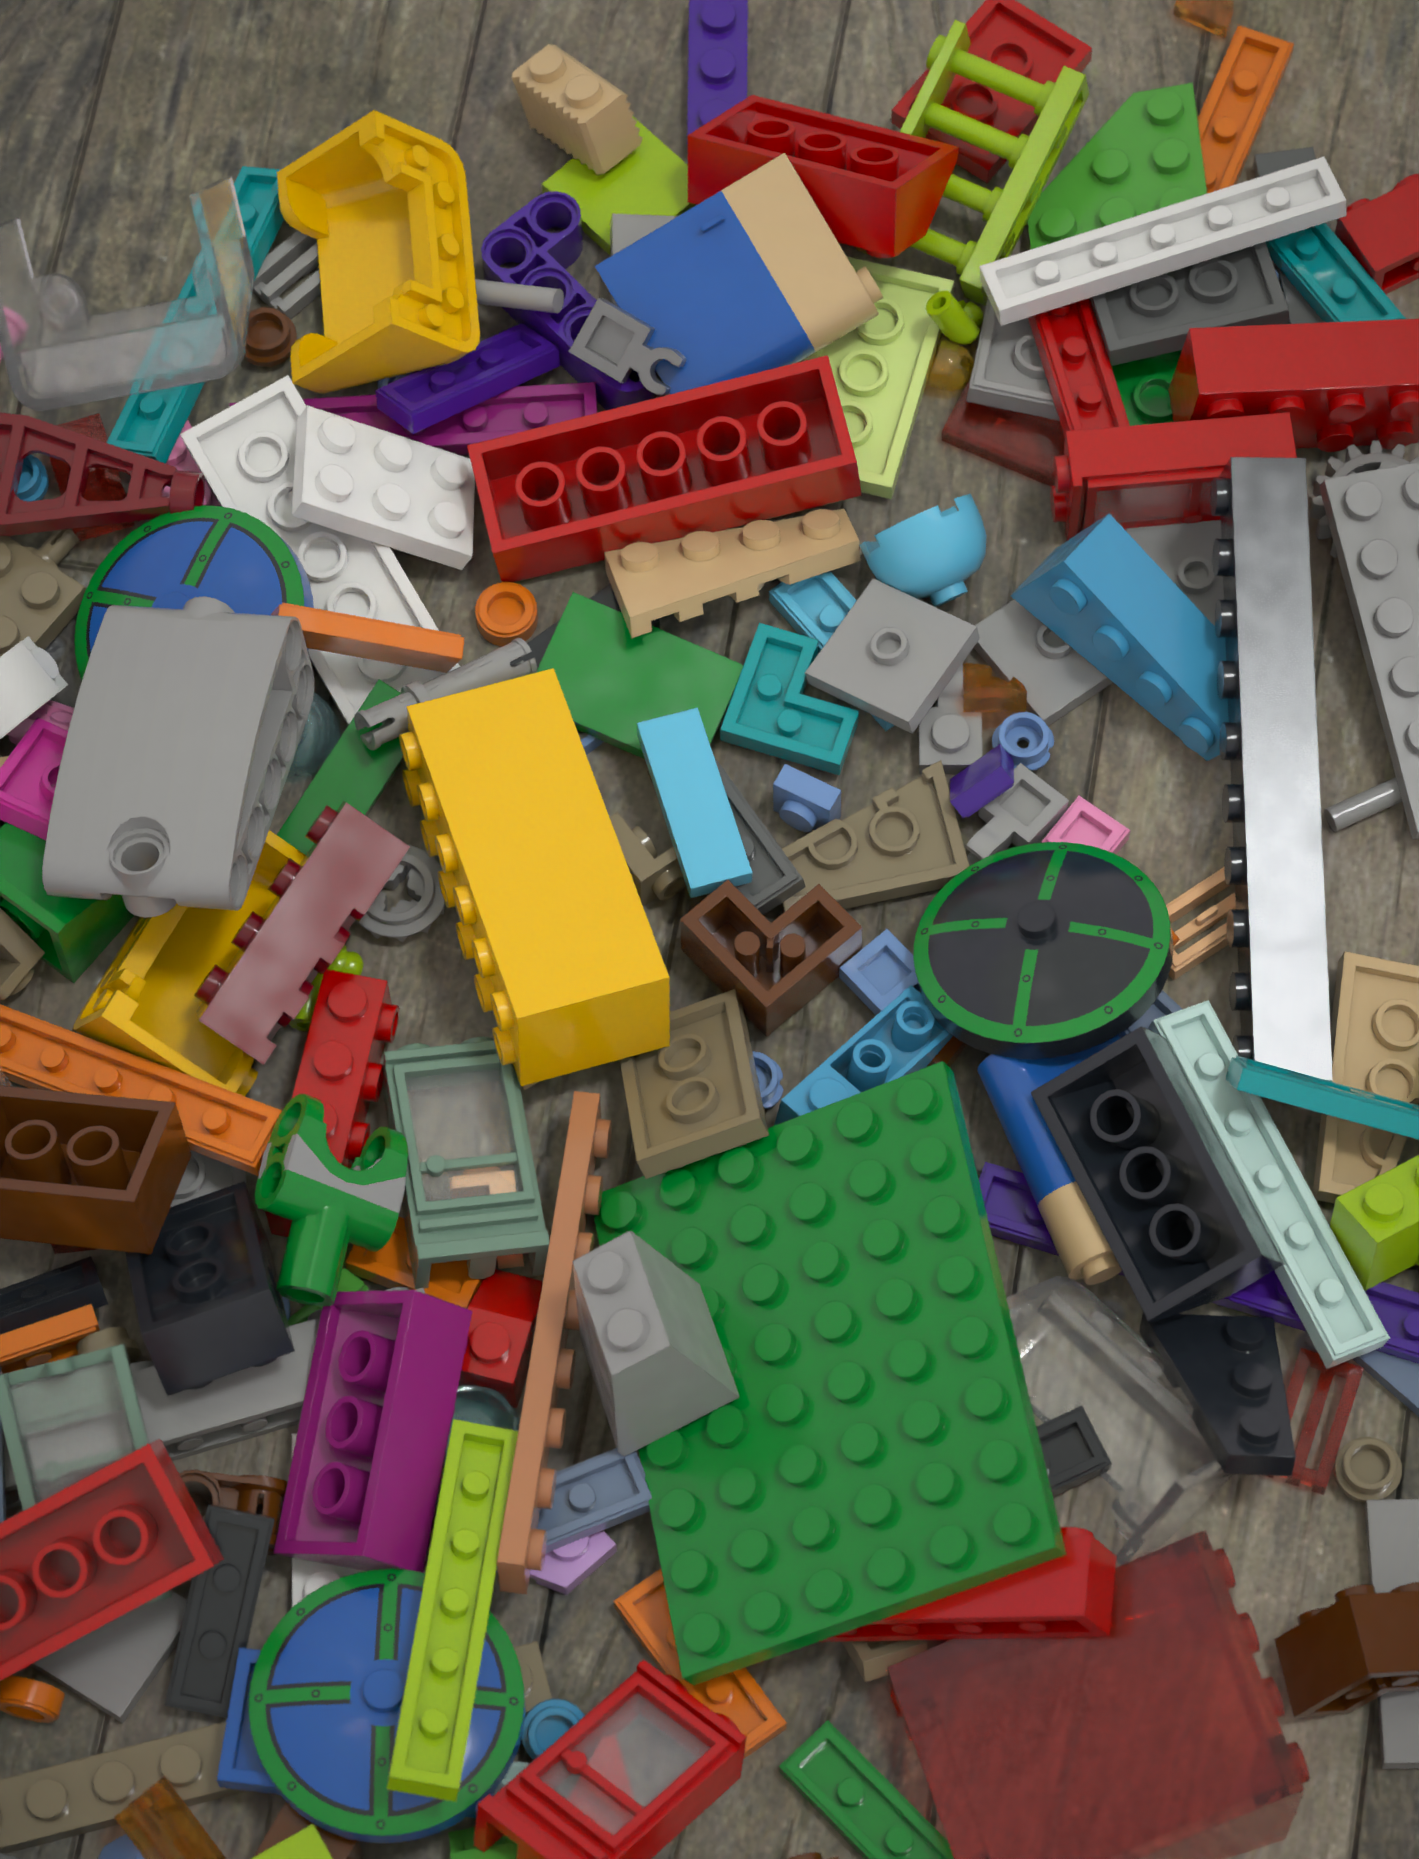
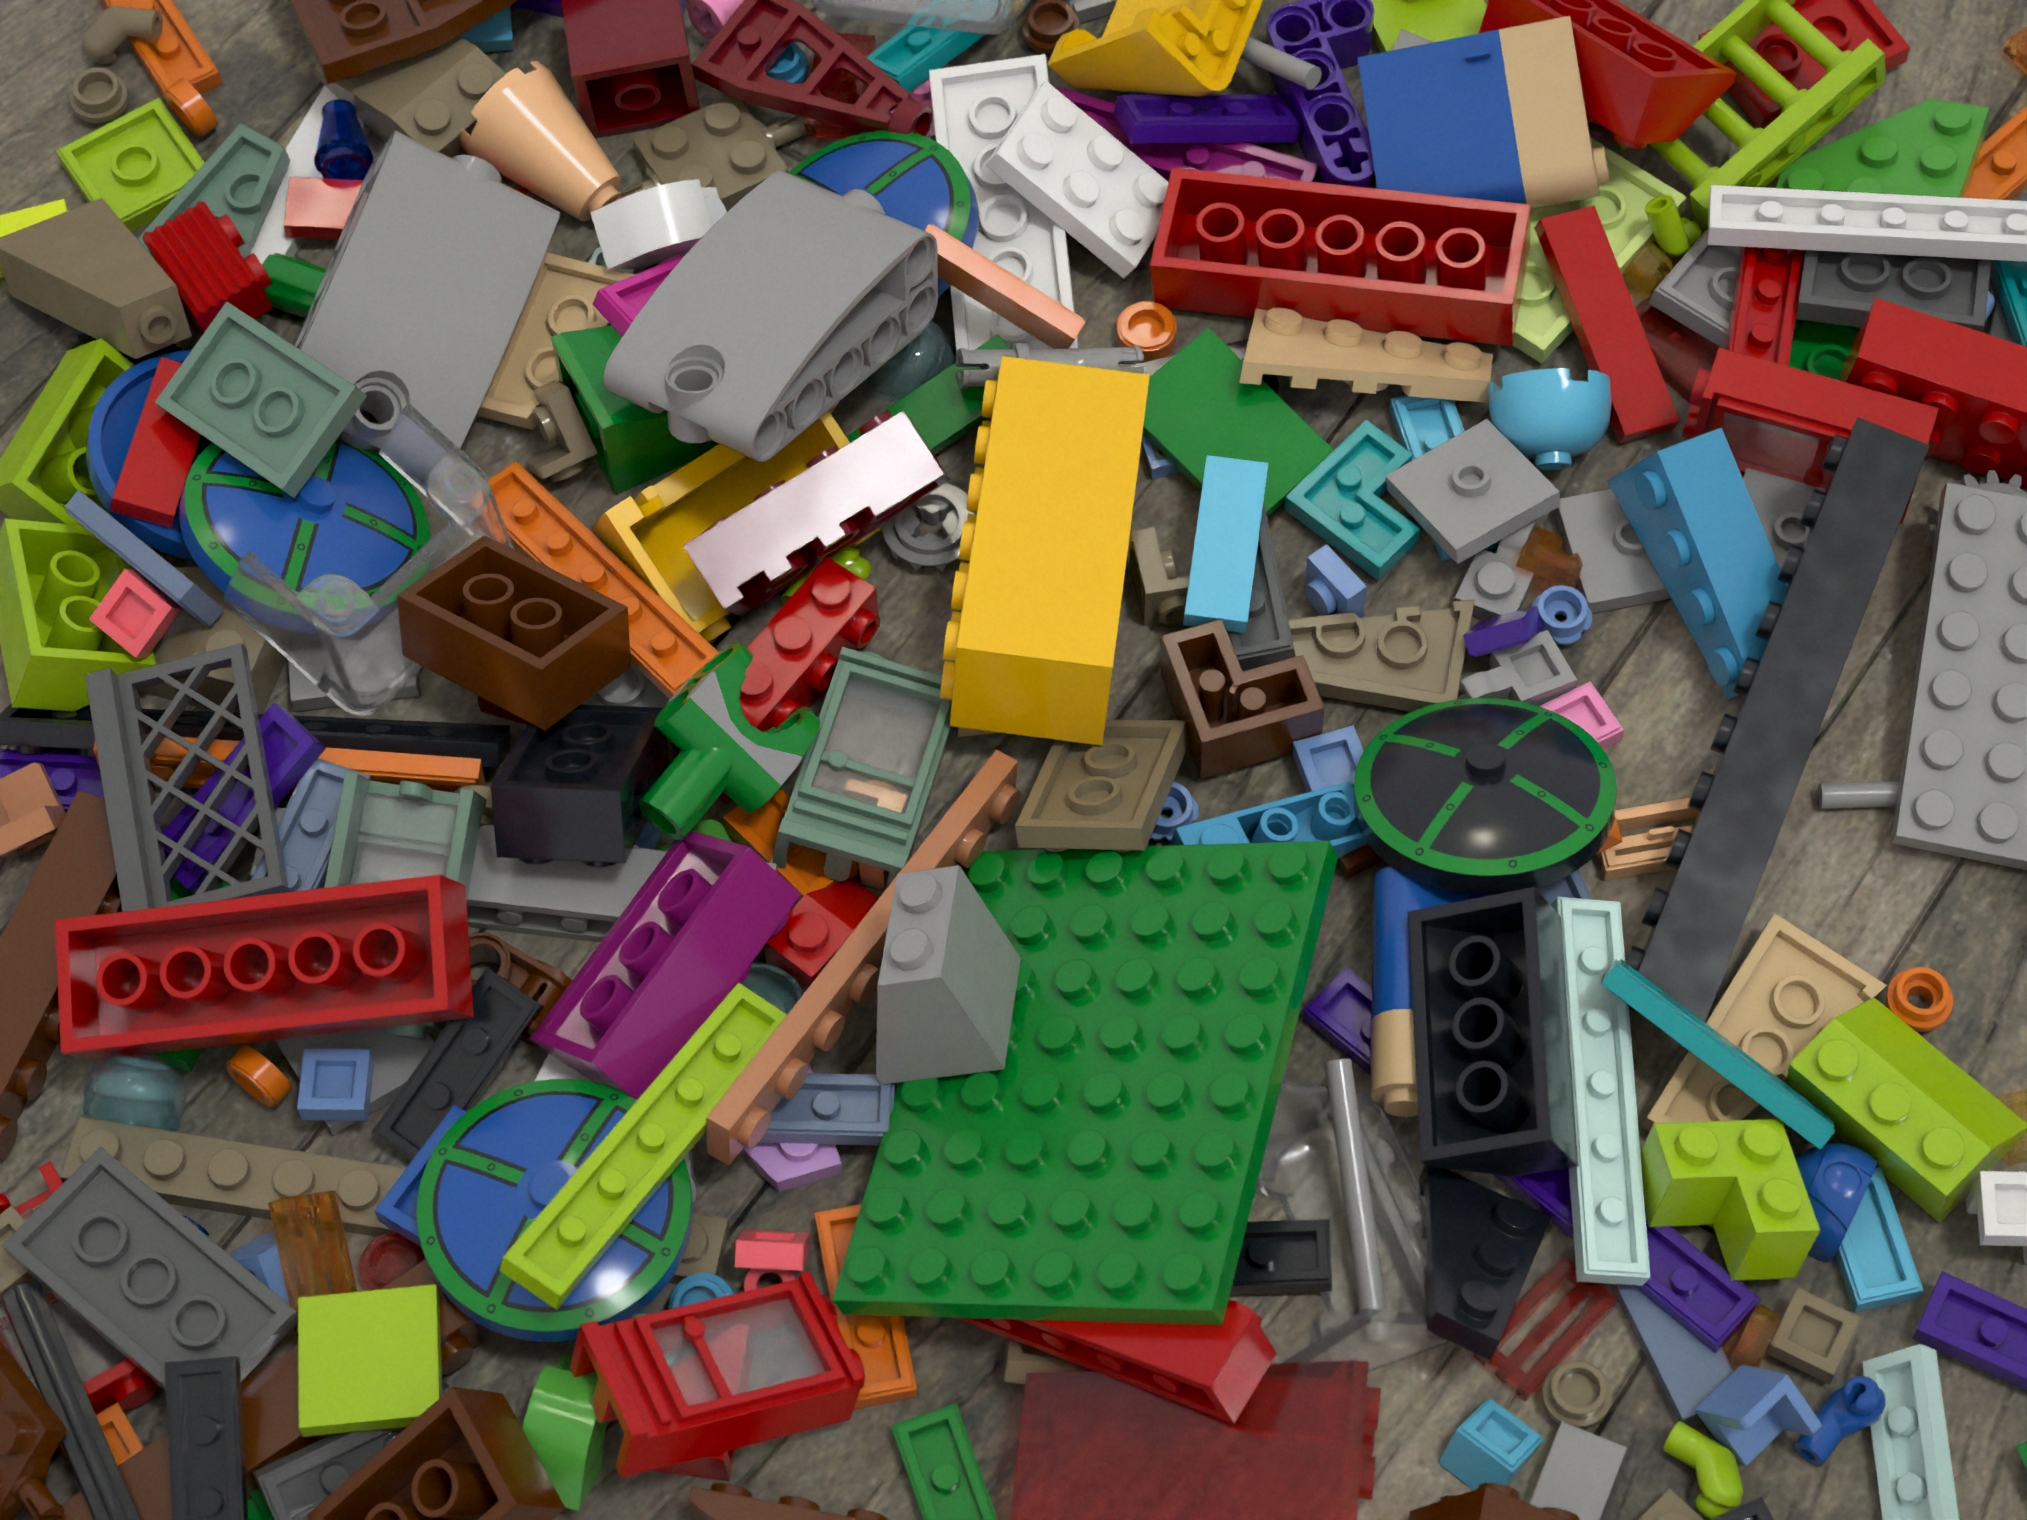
camera: 25 degrees right, 5 degrees down
(111, 1675) = (335, 1084): none -> medium blue plate
(244, 1820) = (387, 1259): none -> clear red plate
(595, 1654) = (771, 1252): none -> coral tile
(618, 344) = (1348, 133): flat silver plate -> none
(937, 436) = (1606, 322): none -> red tile
(1100, 1374) = (1355, 1184): none -> light grey bar
(1315, 1552) = (1490, 1447): none -> medium azure slope

